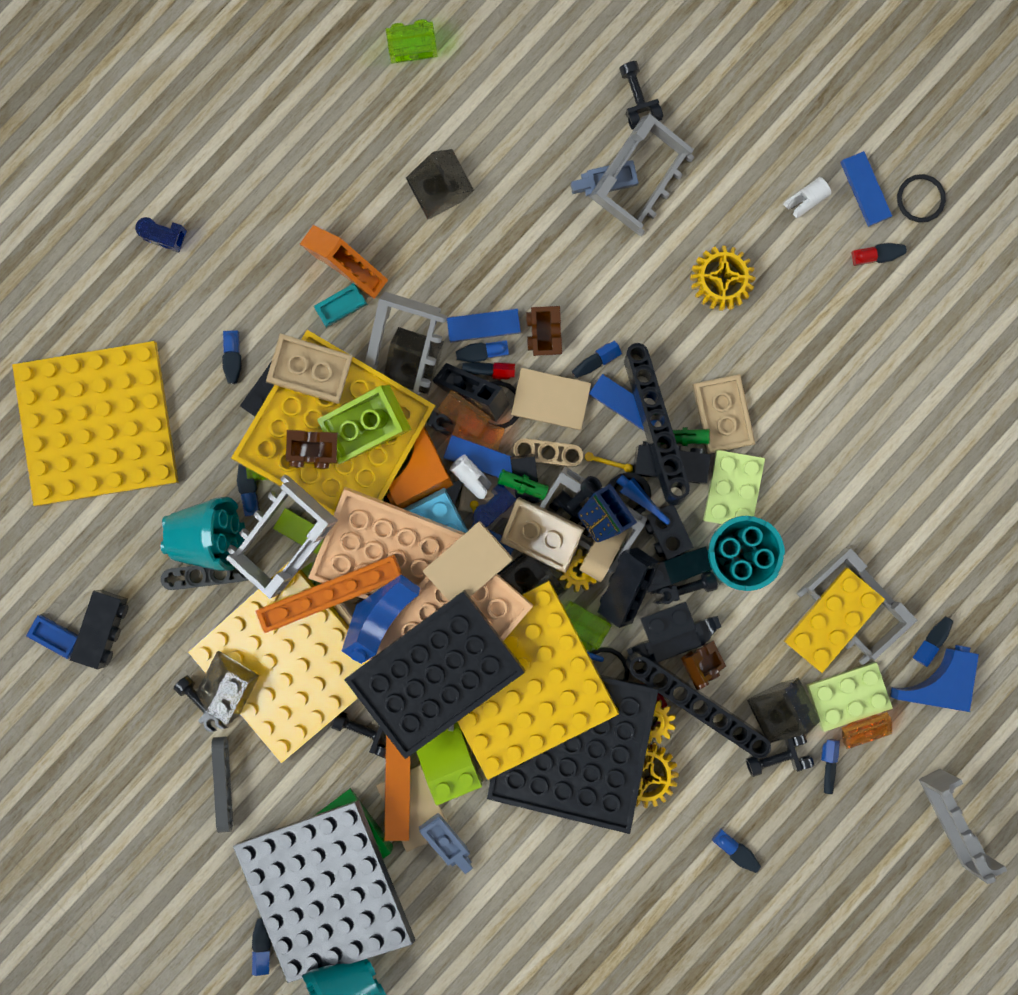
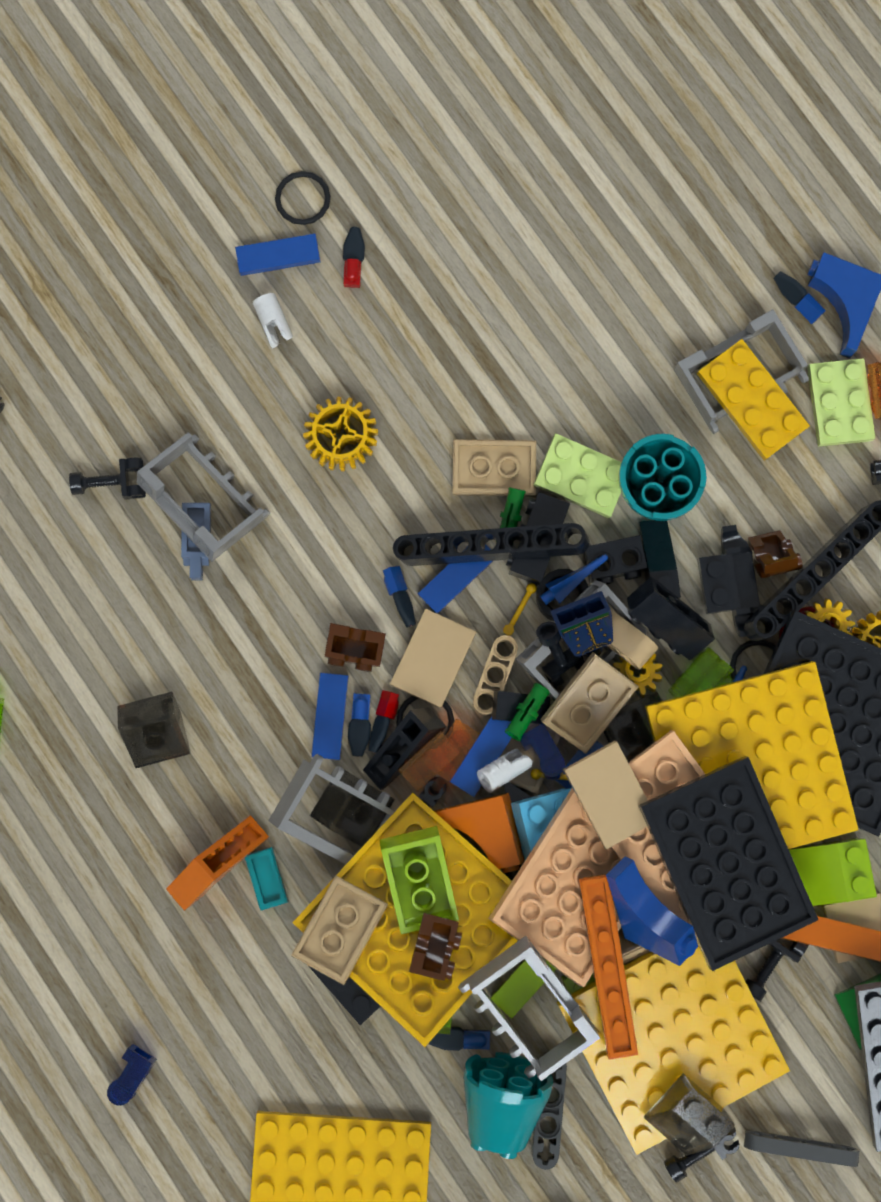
camera: 70 degrees left, 5 degrees down
(231, 359) = (298, 1023): piece -> none
(671, 593) = (686, 571): black bar -> none
(784, 711) = (843, 477): clear smoke slope -> none

